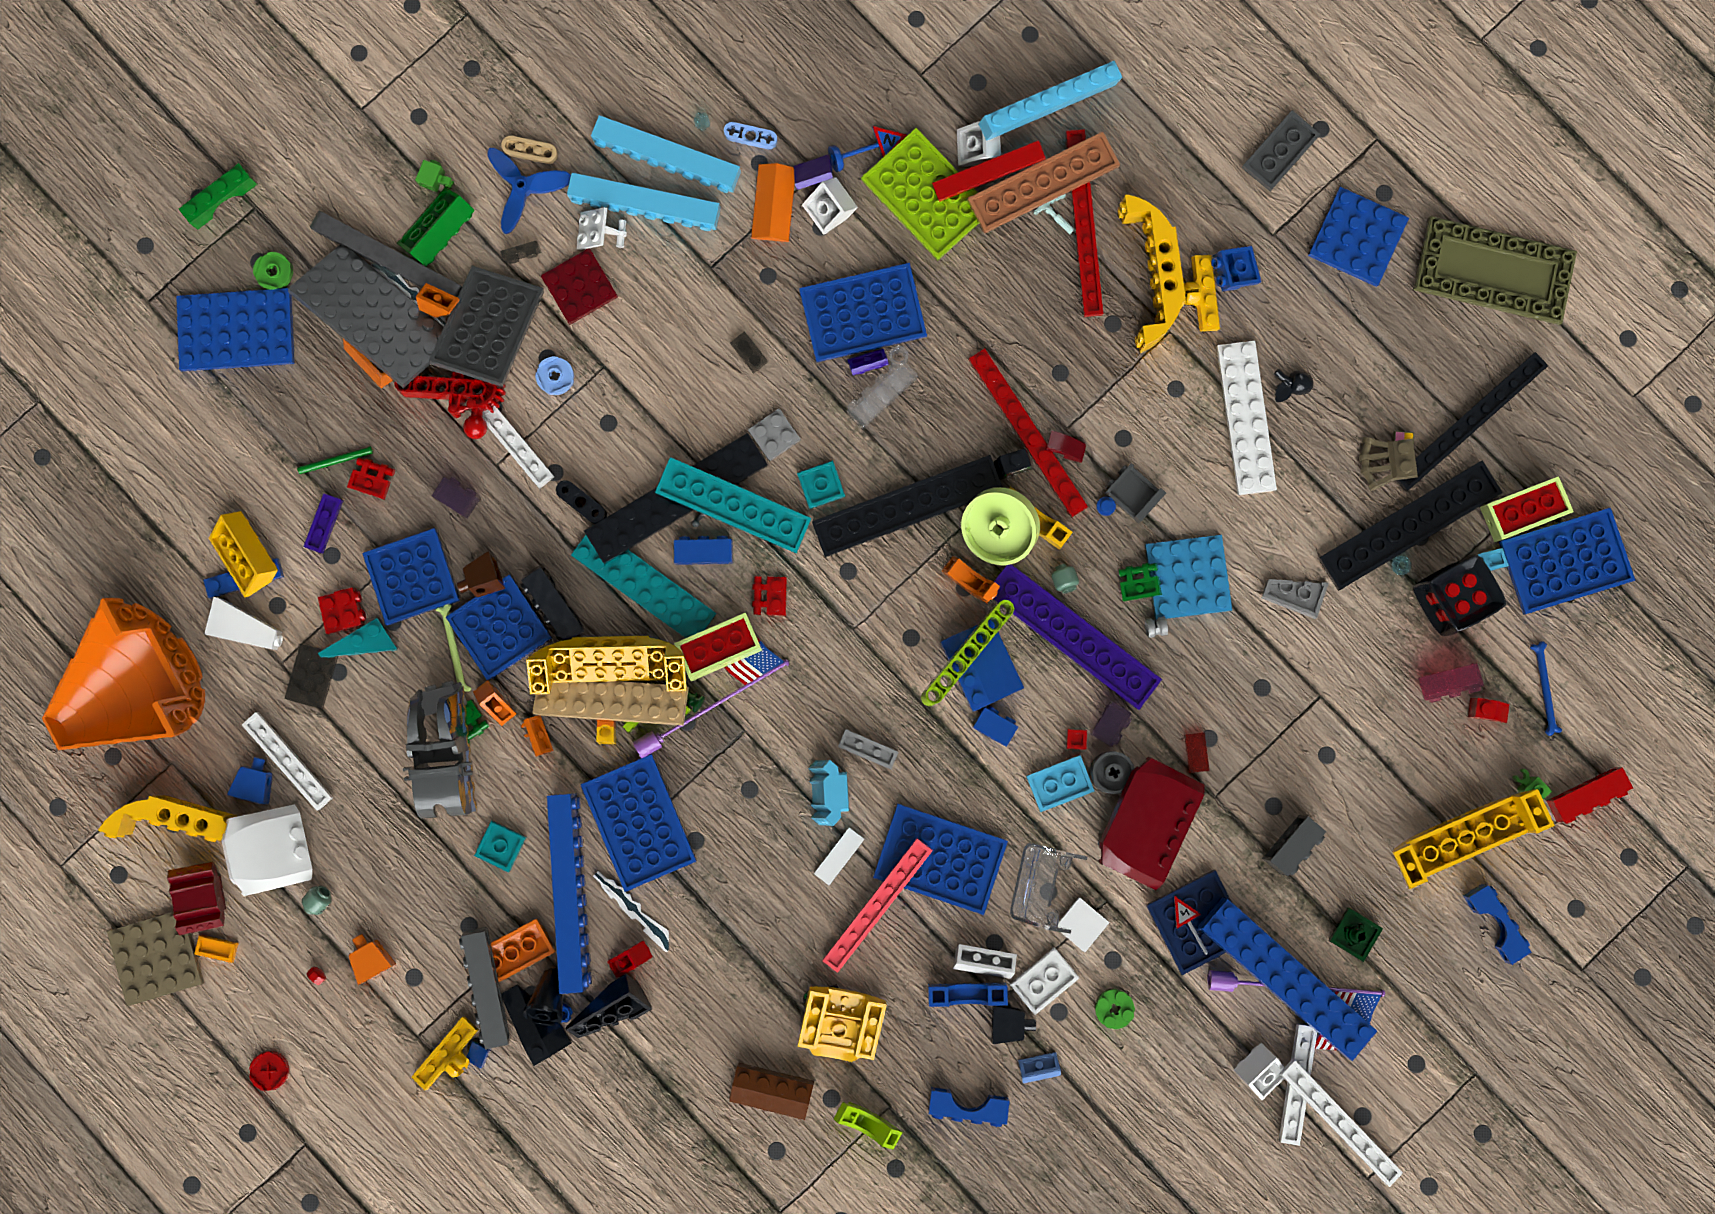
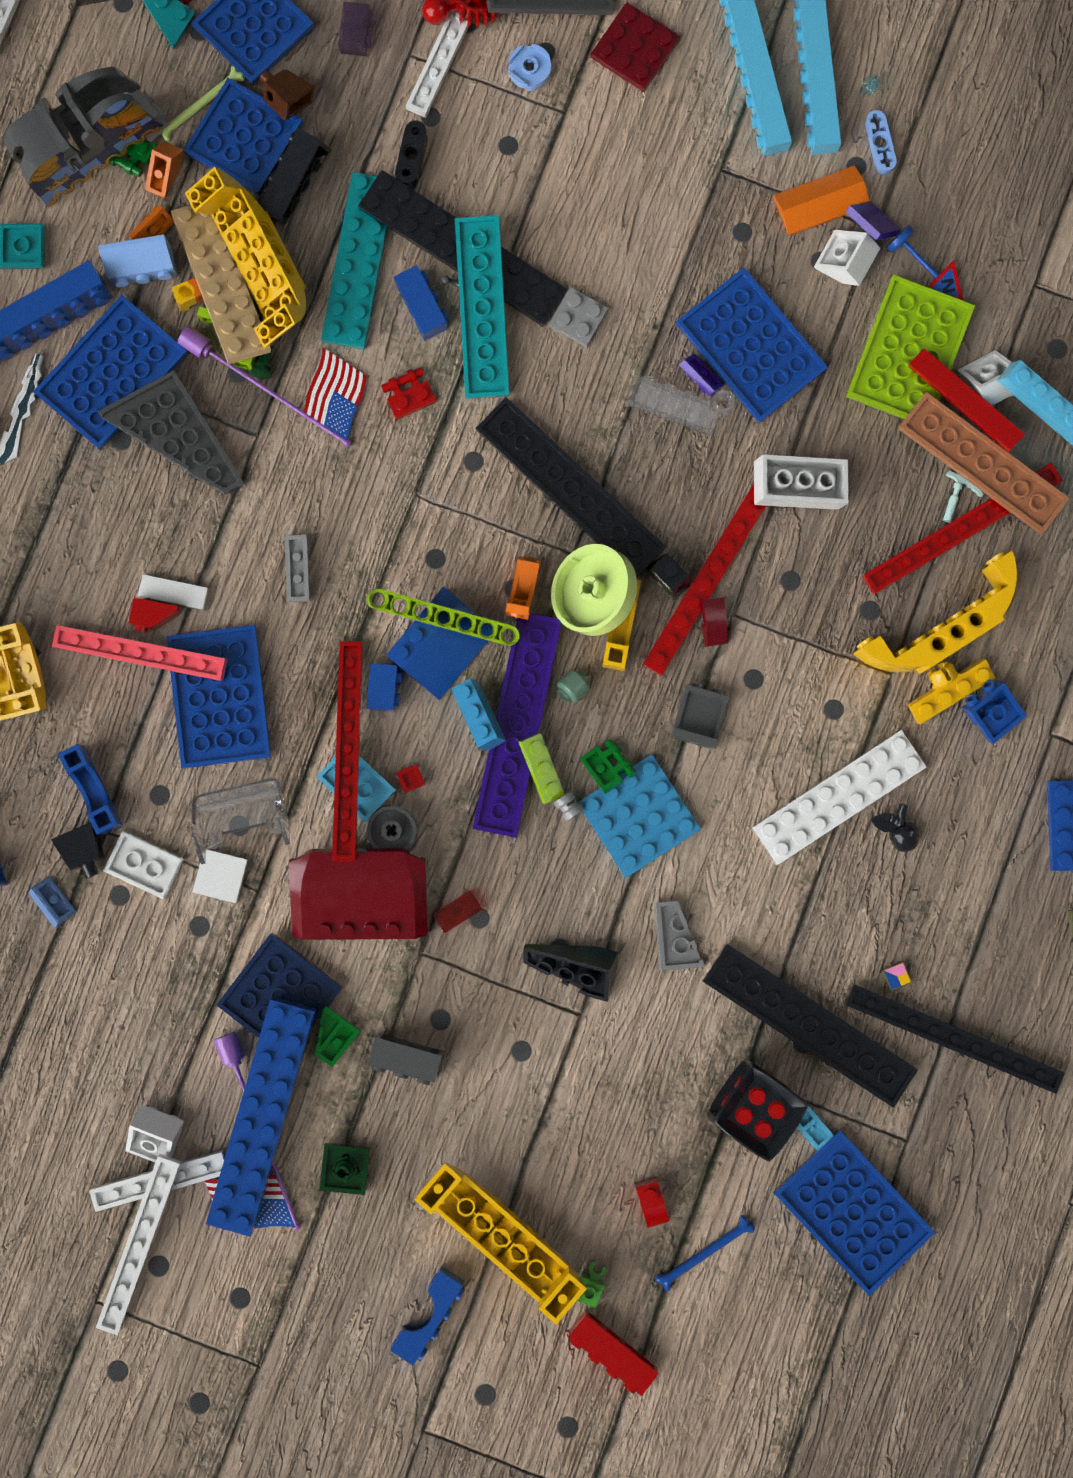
camera: 60 degrees right, 0 degrees up
(562, 758) = (138, 260): none -> light blue slope
(593, 228) = (700, 28): white plate -> none
(707, 793) = (172, 426): none -> dark grey wing
(718, 646) = (328, 362): red brick -> none
(748, 352) = (651, 249): clear smoke plate -> none
(821, 484) = (549, 389): teal plate -> none
(828, 792) = (233, 551): medium azure slope -> none
(849, 882) = (151, 615): none -> red slope
(985, 961) = (133, 791): white brick -> none
(991, 327) = (800, 482): none -> white brick
(1035, 777) = (347, 752): none -> red plate
(1053, 662) = (478, 714): none -> dark azure brick
(1106, 506) = (671, 693): blue plate -> none
(1111, 724) = (443, 806): clear purple brick -> none
(1117, 633) = (541, 768): none -> lime plate
(1119, 998) = (161, 951): bright green plate -> none
(1184, 915) = (278, 976): piece -> none
(1249, 894) = (333, 1036): none -> green wing
(1285, 676) = (583, 966): none -> black wedge
(1395, 565) = (754, 1035): clear light blue plate -> none
(1400, 456) = (874, 981): dark tan plate -> none
(1451, 682) = (661, 1147): clear pink wedge -> none
(1526, 509) = (888, 1141): red brick -> none

